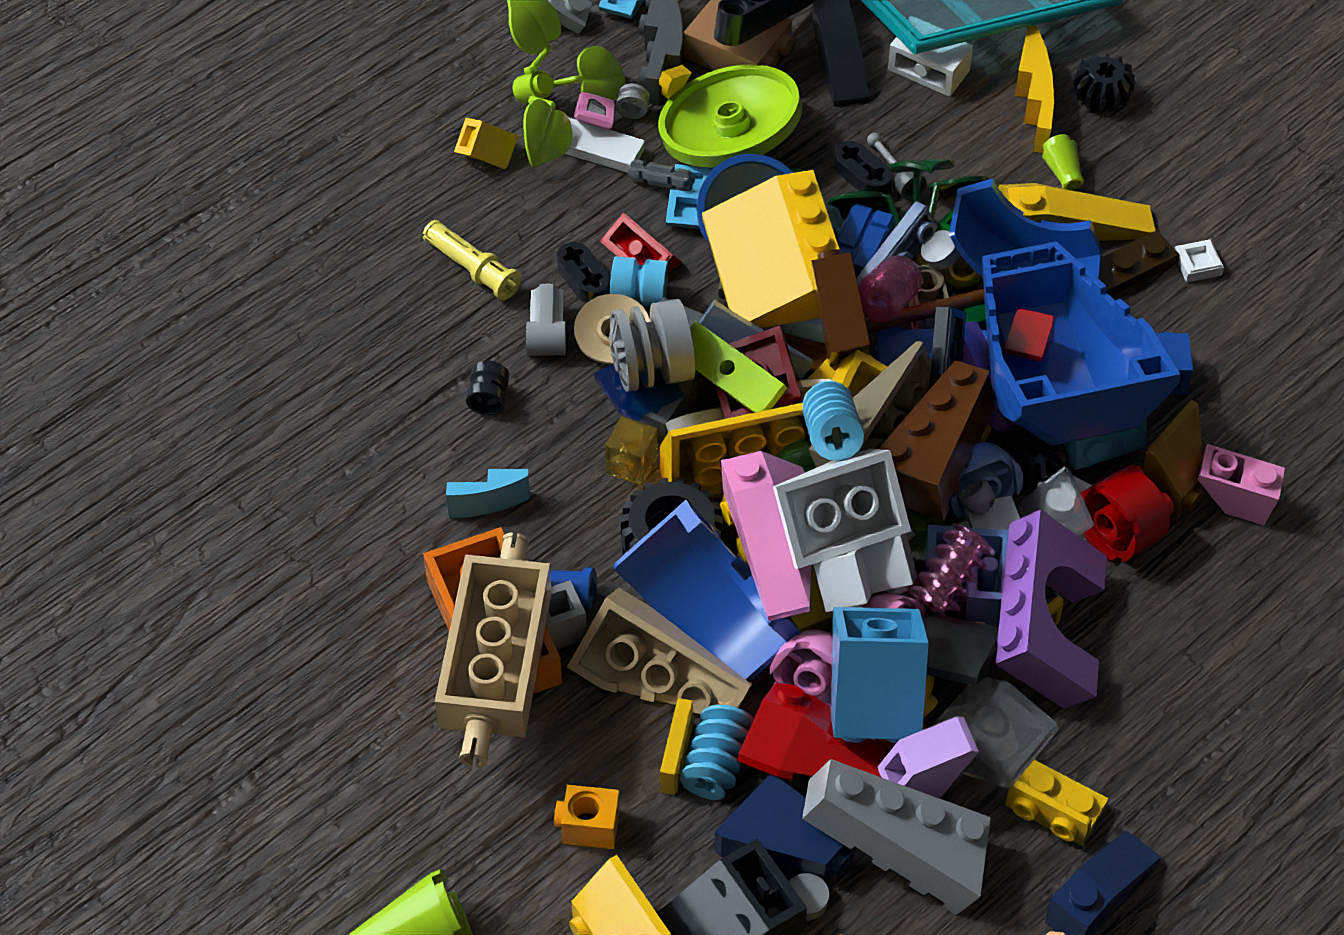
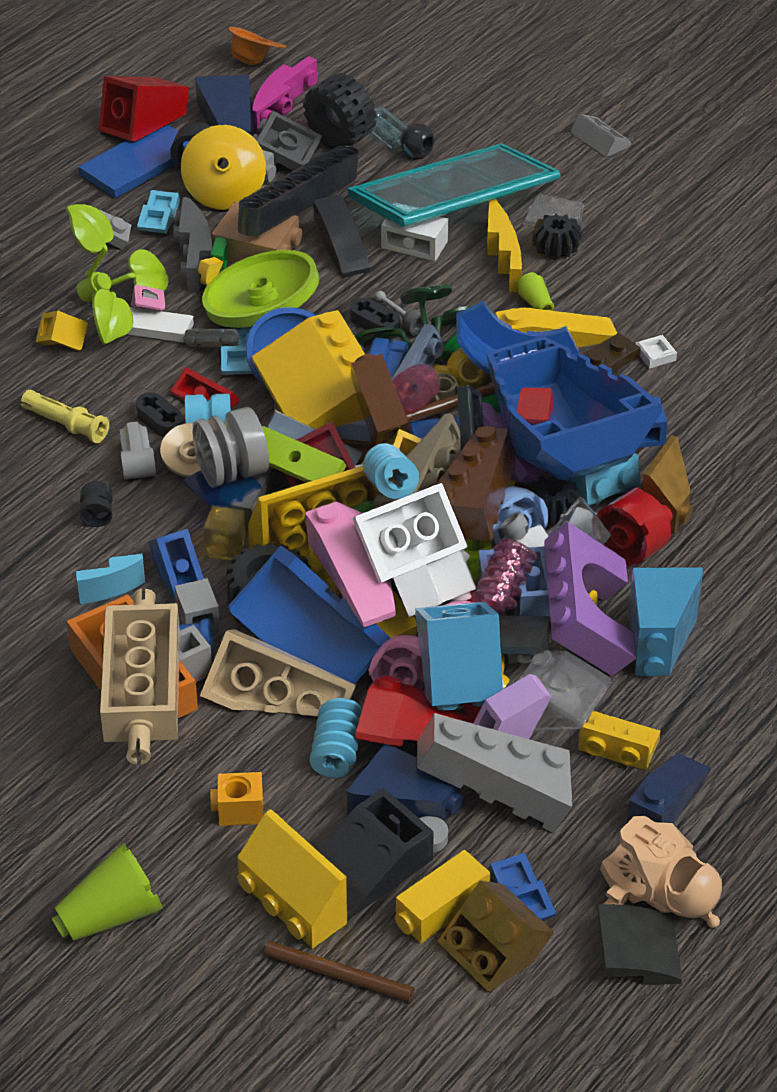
camera: 10 degrees left, 10 degrees down
(570, 486) = (175, 559): none -> blue slope
(583, 543) = (197, 603): none -> light grey brick
(630, 109) = (178, 281): light grey bush -> none
(676, 746) = (302, 739): yellow tile -> none
(691, 57) = (220, 251): none -> green tile
(939, 250) = (450, 359): light grey tile -> none
(1104, 37) = (550, 205): none -> clear piece
(1136, 645) = (662, 615): none -> dark azure slope
(1241, 483) = (721, 496): bright pink slope -> none

